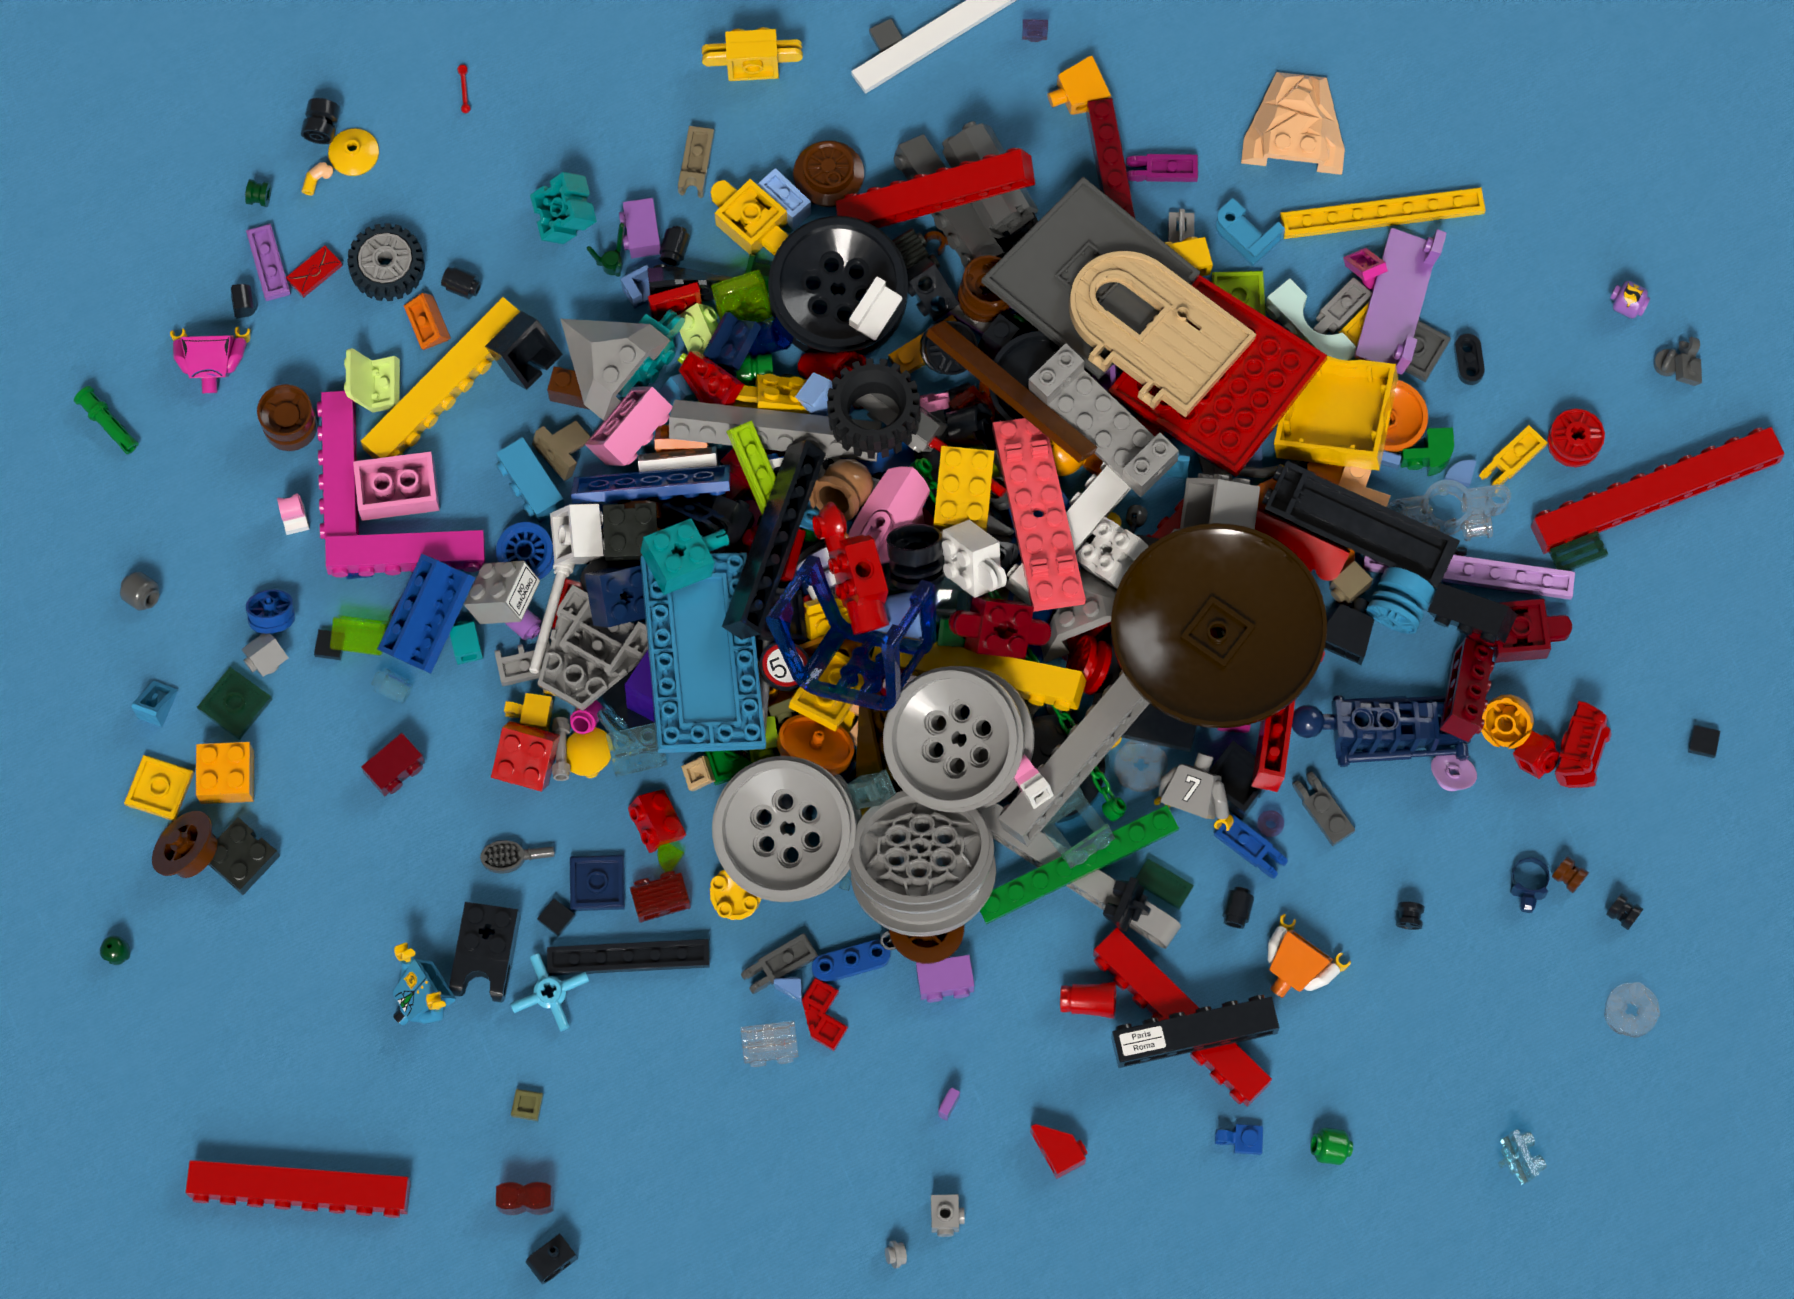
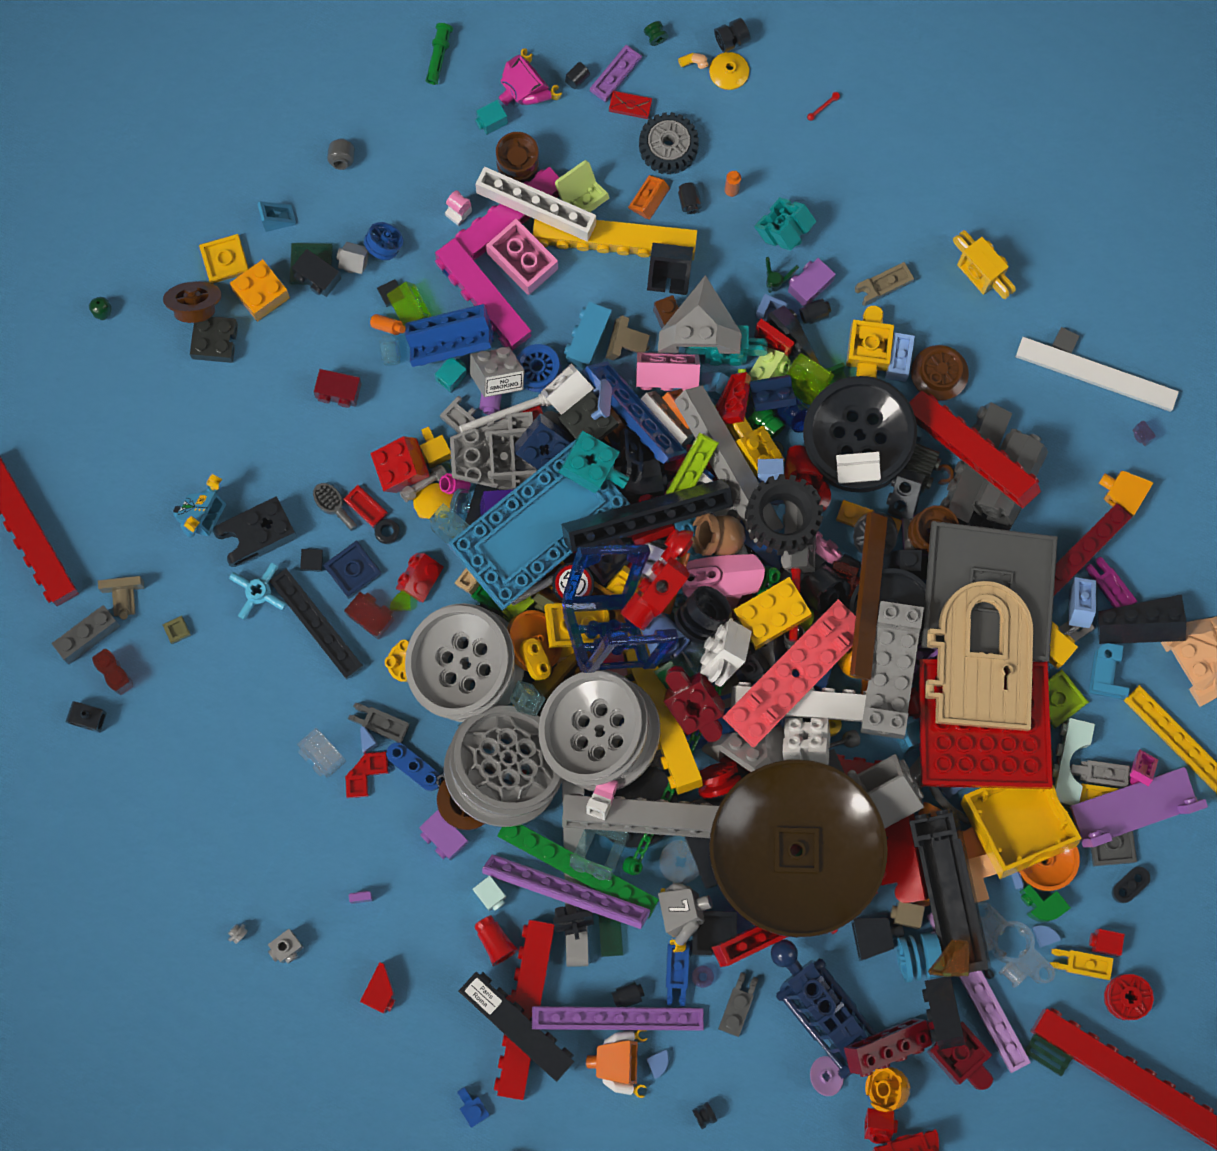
camera: 50 degrees right, 5 degrees up
(219, 415) = (491, 117): none -> teal brick
(253, 702) = (316, 273): none -> black brick
(355, 430) = (535, 204): none -> white brick
(364, 668) = (387, 324): none -> orange cylinder
(446, 1135) = (122, 594): none -> dark tan piece
(463, 1199) = (85, 634): none -> dark grey brick
(479, 229) = (732, 183): none -> orange cylinder
(539, 824) = (365, 506): none -> red tile
(580, 810) = (383, 523): none -> black piece
(623, 497) = (604, 400): none -> medium blue piece
(837, 753) = (535, 659): none -> yellow plate
(1039, 972) = (490, 894): none -> light aqua brick
(1092, 891) = (566, 891): none -> medium lavender tile
(1162, 204) = (1082, 602): none -> light blue panel
(1223, 162) = (1144, 622): none -> black wedge
(1256, 930) = (617, 1018): none -> medium lavender tile
(1326, 926) = (658, 1063): none -> medium blue tile
(1428, 565) = (953, 960): none -> clear orange slope
(1509, 420) = (1107, 942): none -> red brick

